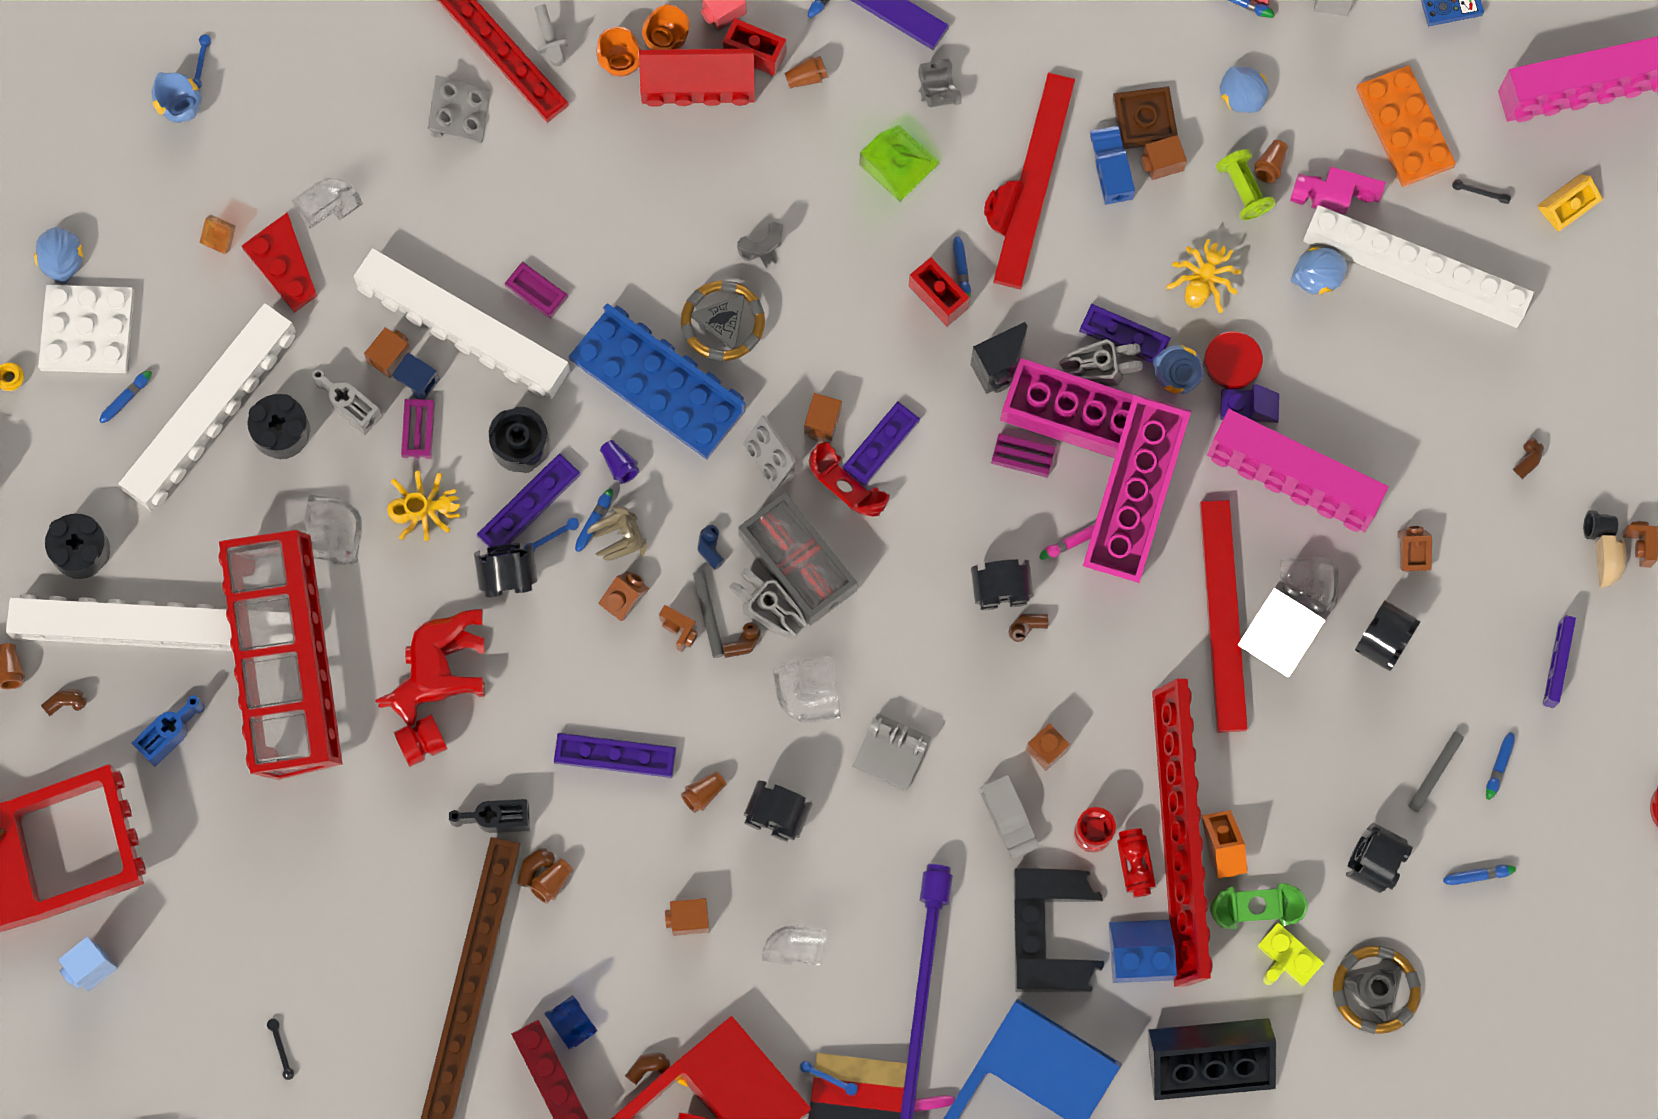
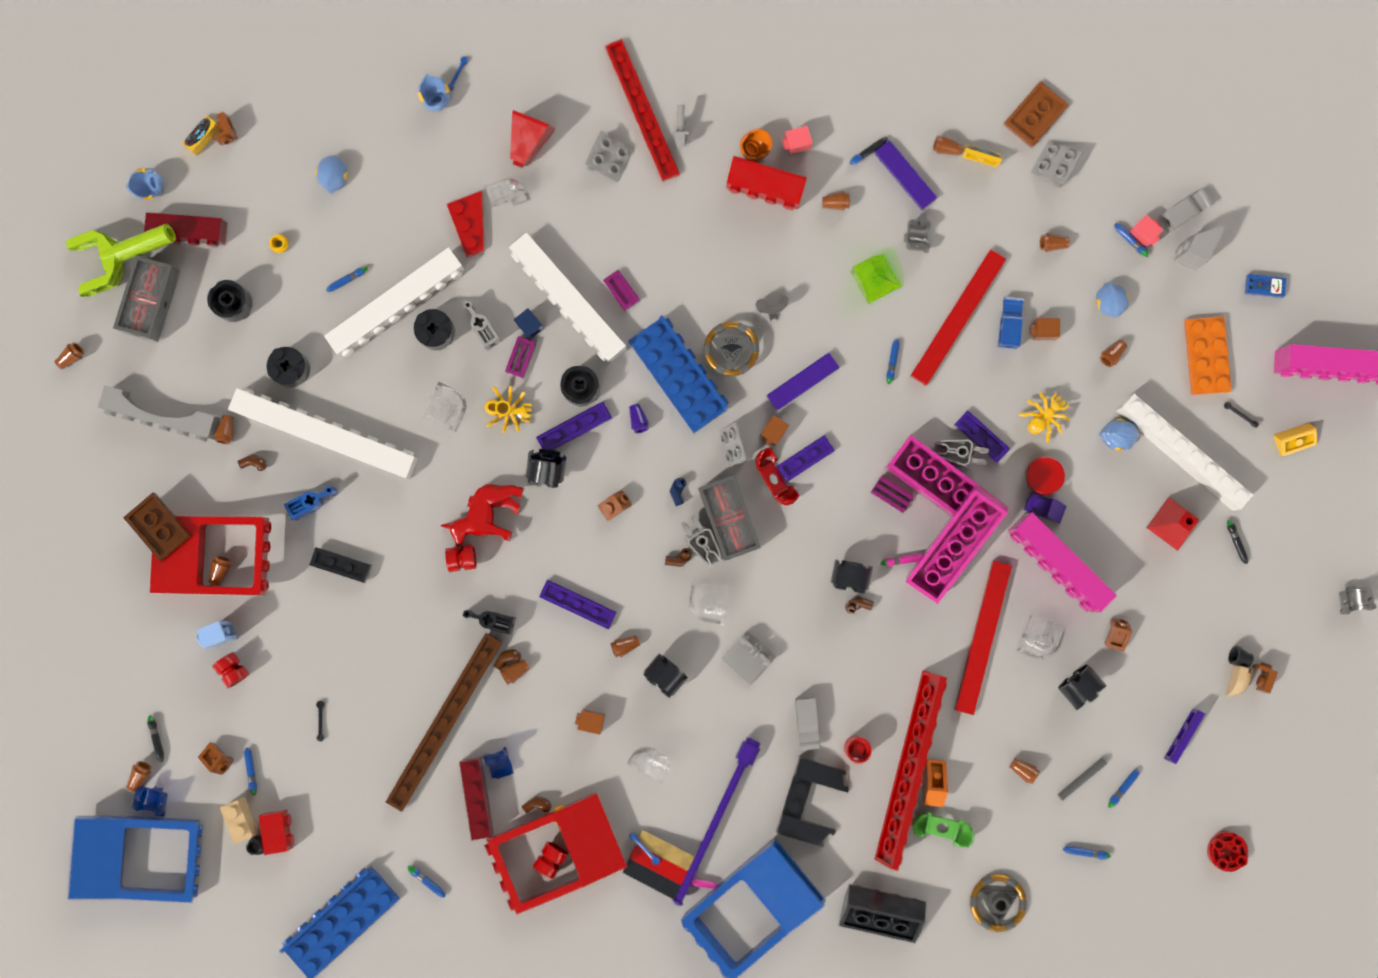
camera: 20 degrees right, 10 degrees up
(60, 873) = (219, 569): none -> dark orange cone
(86, 329) = (335, 227): white plate -> none
(120, 1011) = (230, 670): none -> red wheel
(217, 234) = (433, 191): clear orange plate -> none
(242, 808) = (340, 565): none -> black plate
(280, 654) = (389, 477): window -> none
(332, 116) = (527, 138): none -> slope
(387, 351) = (516, 302): dark orange brick -> none
(572, 524) = (597, 449): blue hinge -> none
(597, 514) = (620, 441): blue piece -> none
(618, 51) = (721, 150): orange hair -> none
(632, 539) = (630, 466): dark tan piece -> none
(675, 622) = (640, 533): dark orange bracket -> none
(708, 614) = (663, 533): dark grey bar -> none
(768, 47) = (816, 177): red brick -> none
(841, 337) = (802, 381): none -> dark purple tile
(939, 291) = (873, 373): red brick -> none
(998, 358) = (897, 430): black slope -> none
(1001, 205) = (931, 328): red plate -> none
(1047, 747) = (845, 687): dark orange brick -> none
(1132, 37) = (1053, 242): none -> dark orange cone
(1133, 847) = (877, 766): red piece -> none
(1142, 951) = (862, 833): blue slope -> none
(1144, 116) = (1042, 297): reddish brown tile -> none
(1178, 369) = (1008, 472): medium blue hair -> none
(1245, 184) = (1092, 363): lime hose -> none
(1284, 627) = (1019, 661): brick -> none
(1288, 956) = (951, 865): neon yellow plate -> none
(1336, 190) = (1148, 385): dark pink plate -> none
(1349, 784) = (1024, 770): none -> dark orange cone
(1378, 859) = (1027, 825): black brick -> none
(1440, 369) = (1173, 523): none -> red slope
(1532, 460) = (1213, 600): reddish brown arm -> none
(1536, 365) = (1237, 541): none -> black piece

